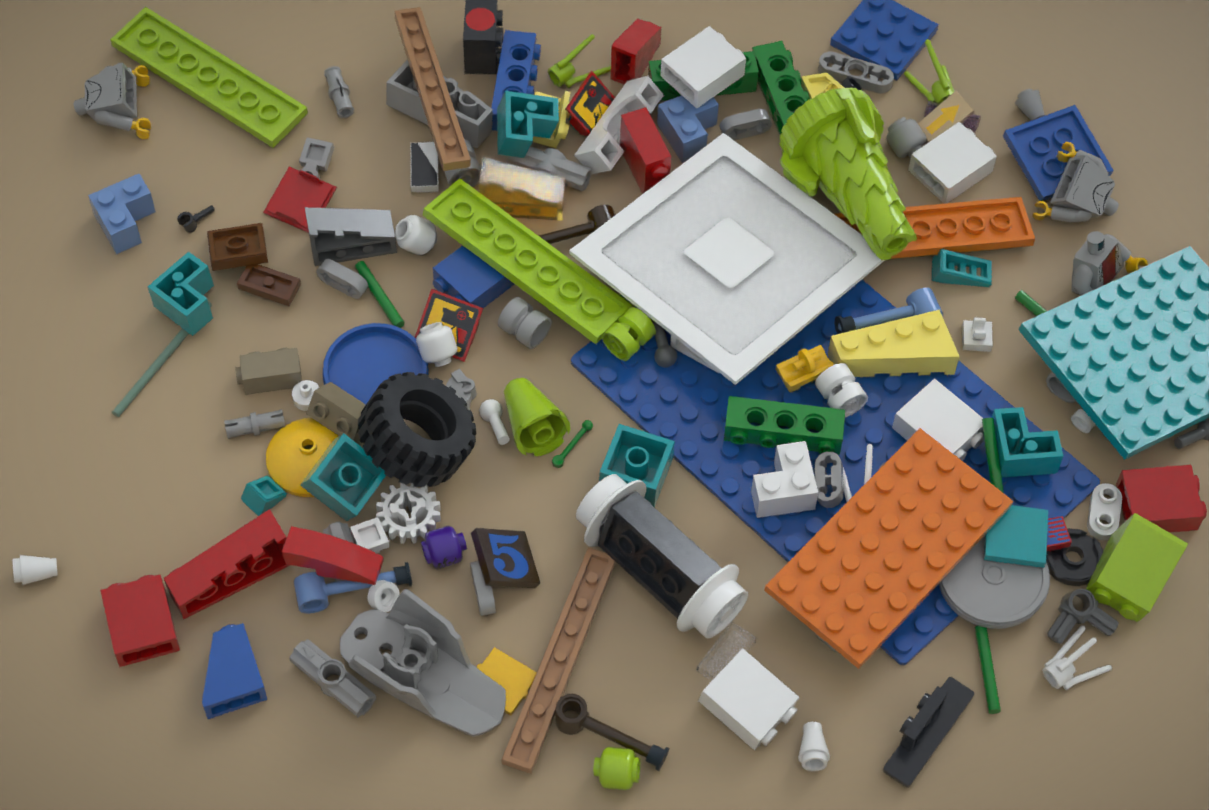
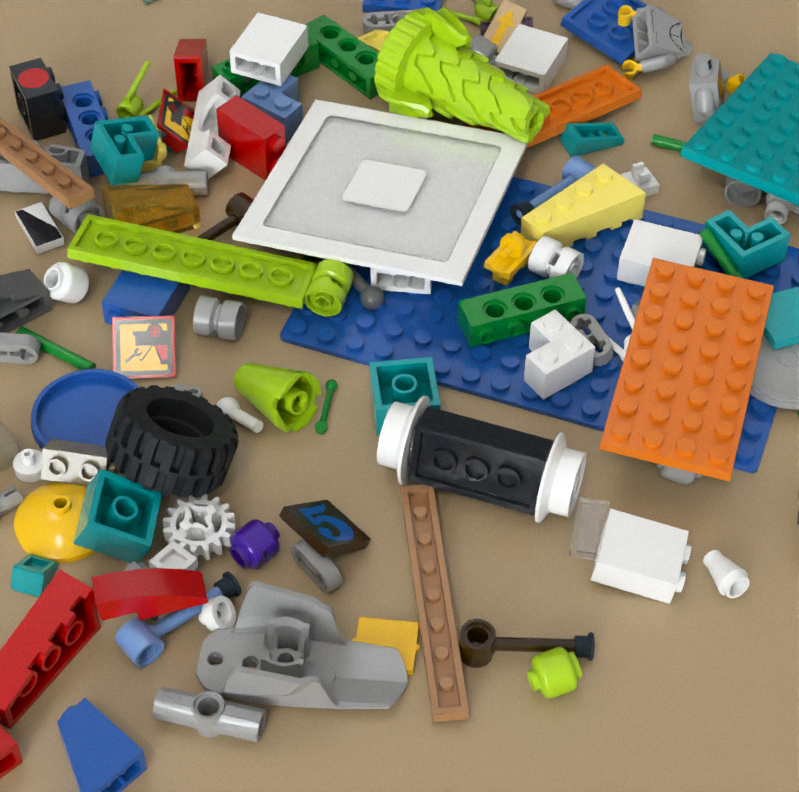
camera: 25 degrees left, 10 degrees down
(436, 344) = (142, 366): white head -> none
(746, 124) = (329, 89): light grey beam -> none

